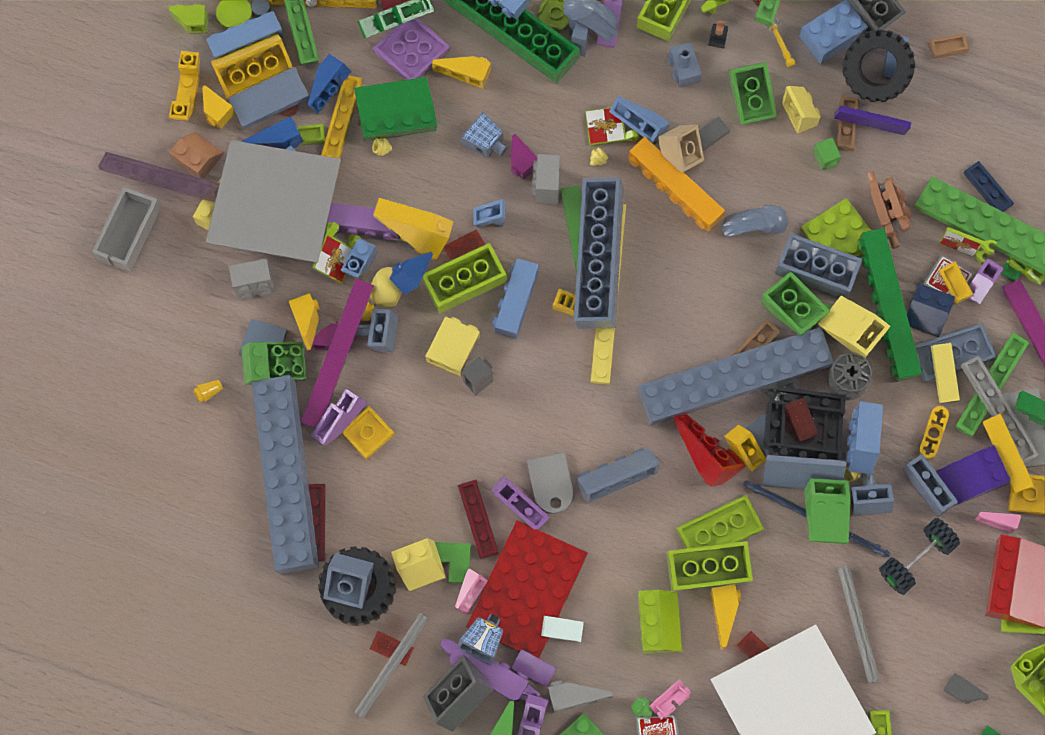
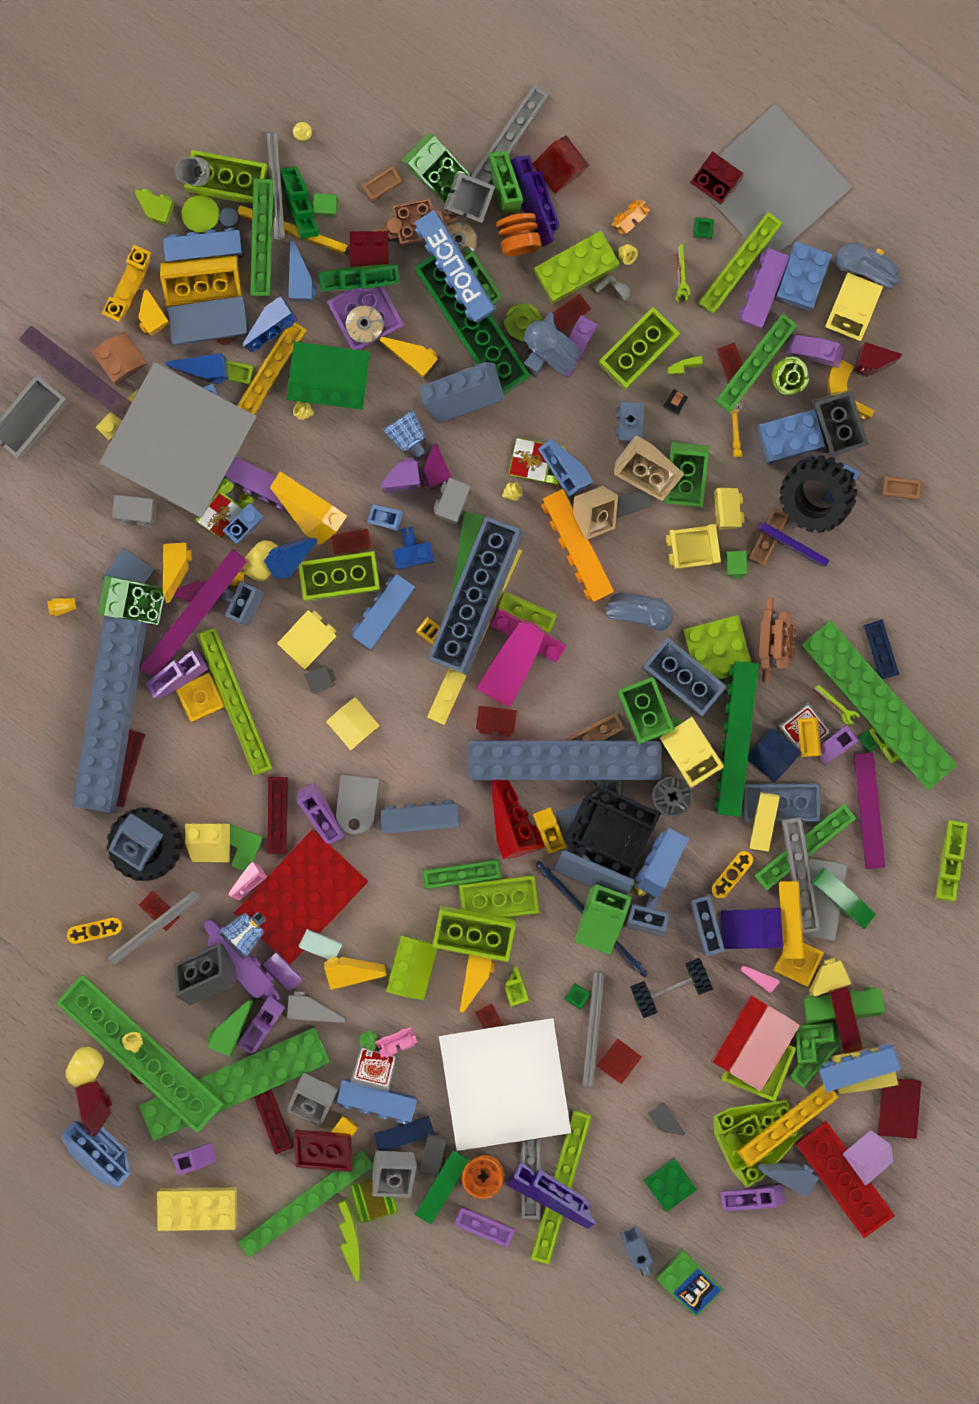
camera: 15 degrees right, 15 degrees up
(323, 702) = (79, 928): none -> yellow beam
(343, 37) = (300, 282): none -> medium blue slope
(402, 426) = (234, 701): none -> lime tile
(413, 63) = (367, 333): none -> tan dish
(494, 173) = (402, 477): none -> medium lavender slope
(521, 410) = (352, 723): none -> light yellow slope
(523, 81) = (462, 392): none -> sand blue slope
(526, 237) = (412, 553): none -> blue brick
(596, 646) = (349, 971): none -> yellow slope
(651, 256) = (526, 610): none -> lime plate
(655, 298) = (516, 656): none -> dark pink slope
(657, 362) = (496, 720): none -> clear red brick
(675, 517) = (461, 874): none -> bright green tile
(716, 96) = (647, 469): none -> tan slope
(768, 610) = (515, 989): none -> lime slope
(783, 152) = (693, 547): none -> light yellow panel
(801, 419) = (610, 824): clear red plate -> none
(830, 597) = (577, 996): none -> green tile
(895, 647) = (619, 1061): none -> clear red piece

